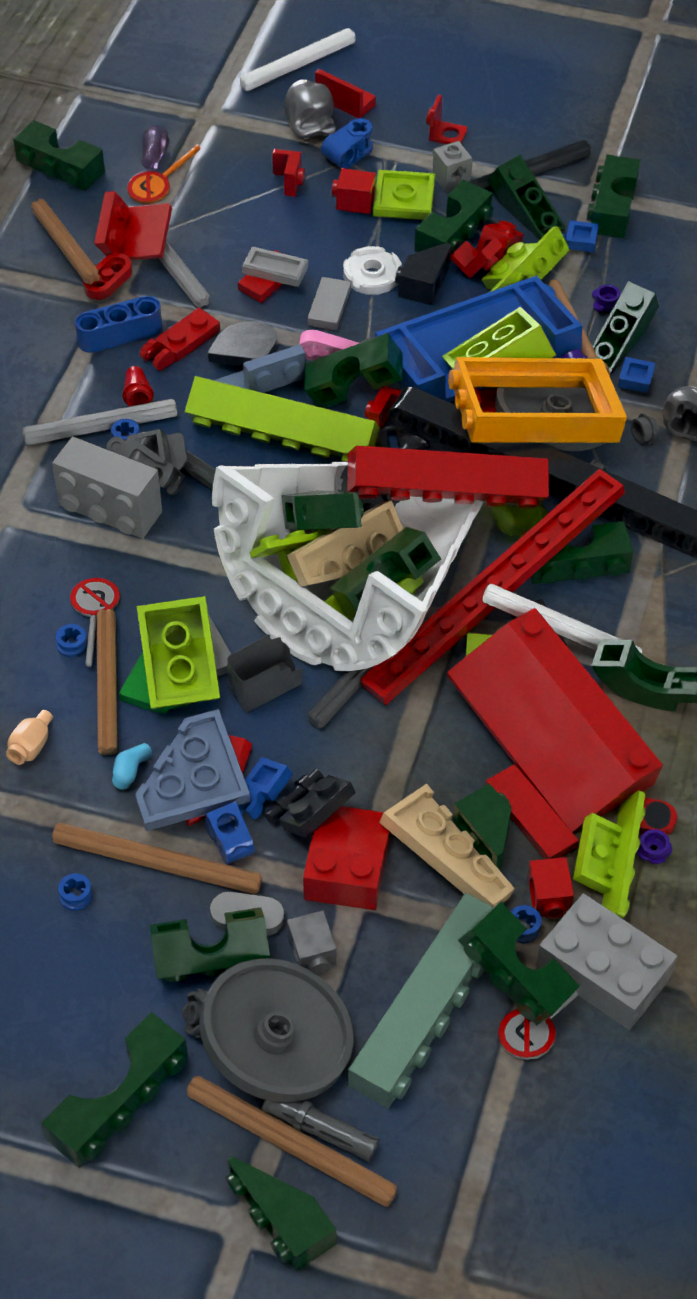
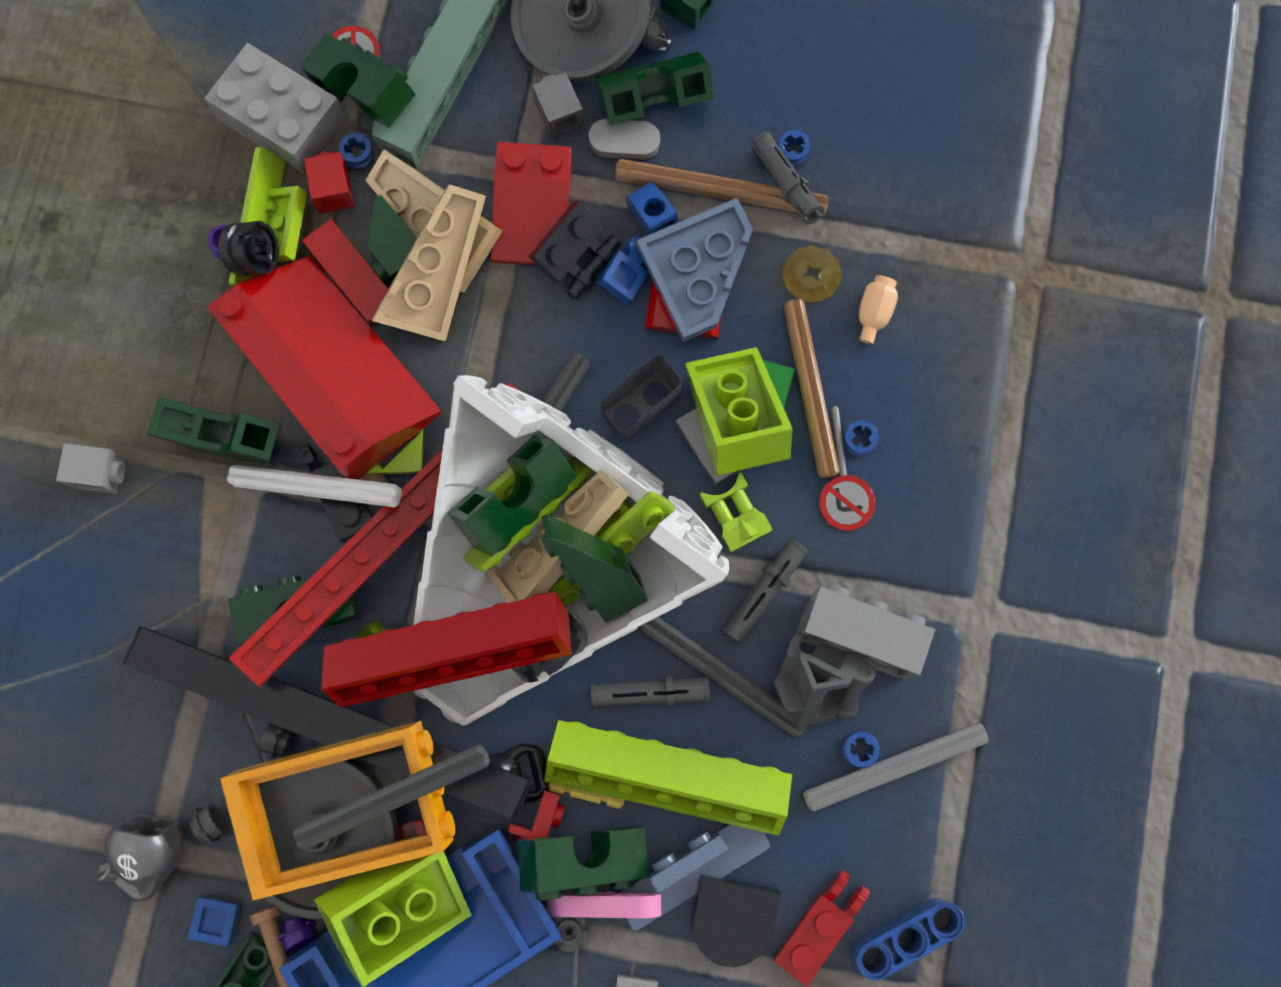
camera: 170 degrees right, 25 degrees up
(73, 786) = (808, 287): none -> clear yellow gear
(93, 855) = (793, 186): none -> dark grey pin
(127, 764) = (769, 282): medium azure arm -> none
(136, 387) = (861, 826): red cone -> none
(169, 544) = (792, 554): none -> dark grey pin
(192, 582) = (742, 529): none -> lime piece
(446, 785) = (433, 271): none -> tan wing
(491, 380) = (391, 797): none -> dark grey axle
(624, 809) = (249, 248): none -> black wheel
(658, 816) = (215, 277): tile -> none

